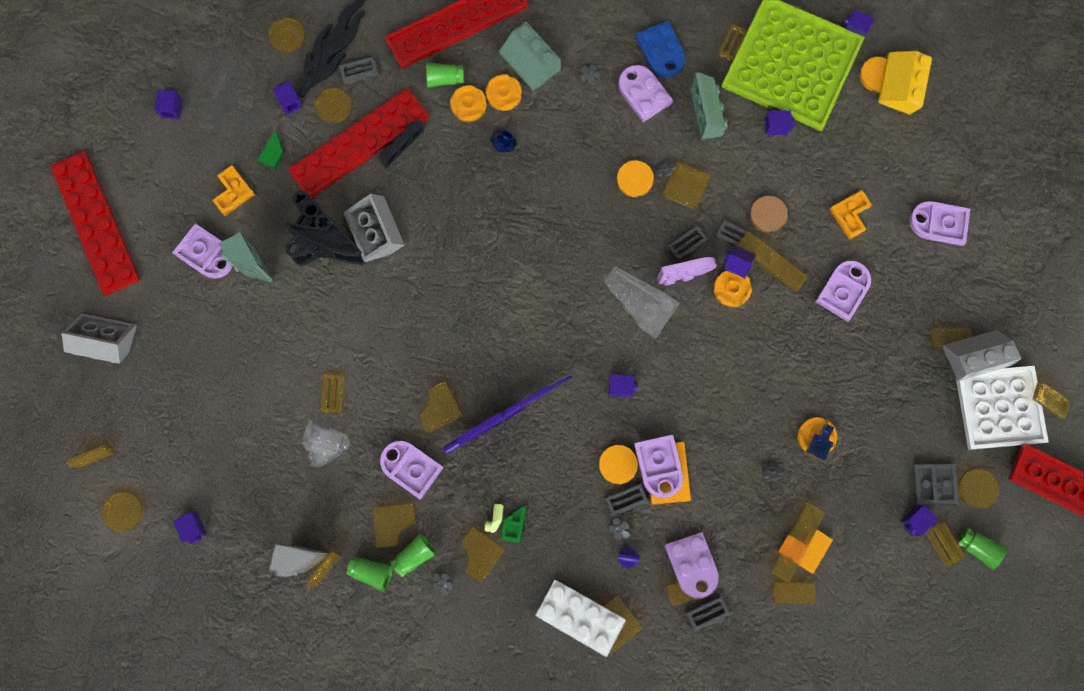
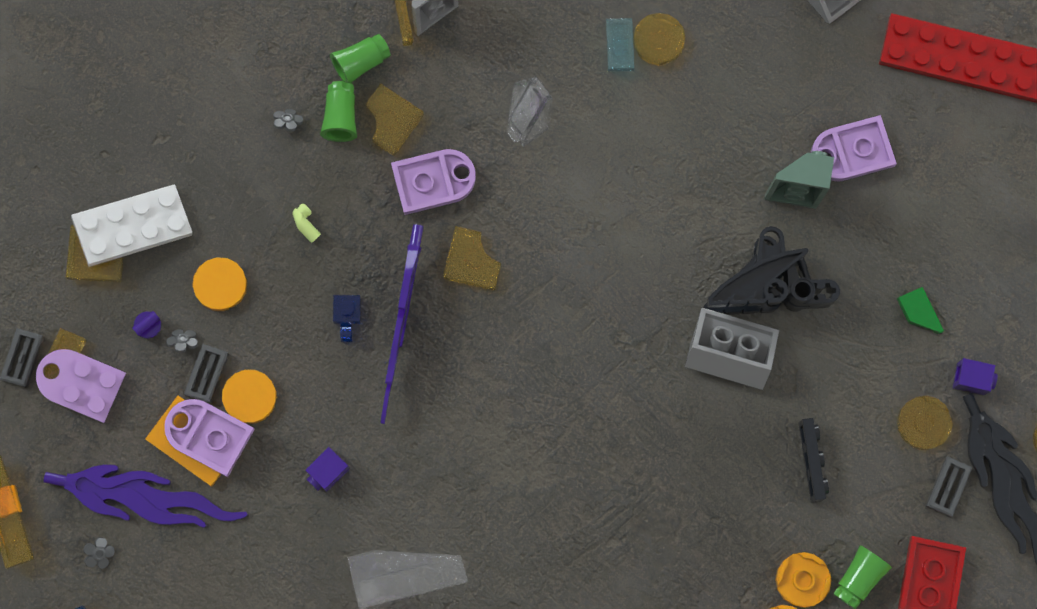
camera: 125 degrees right, 0 degrees up
(220, 411) = (659, 38): none -> clear yellow tile
(236, 192) = (901, 238): light orange tile -> none
(241, 429) = (620, 44): none -> clear light blue plate
(333, 377) = (577, 173): clear yellow tile -> none
(357, 143) = (854, 416): red plate -> none
(482, 554) = (281, 182): clear yellow tile -> none
(503, 140) = (720, 578): clear blue plate -> none
(513, 526) = (282, 236): green tile -> none
(526, 451) = (346, 312): none -> clear blue plate
(570, 537) = (219, 284): none -> light orange tile
(724, 486) = (129, 489): none -> dark purple piece

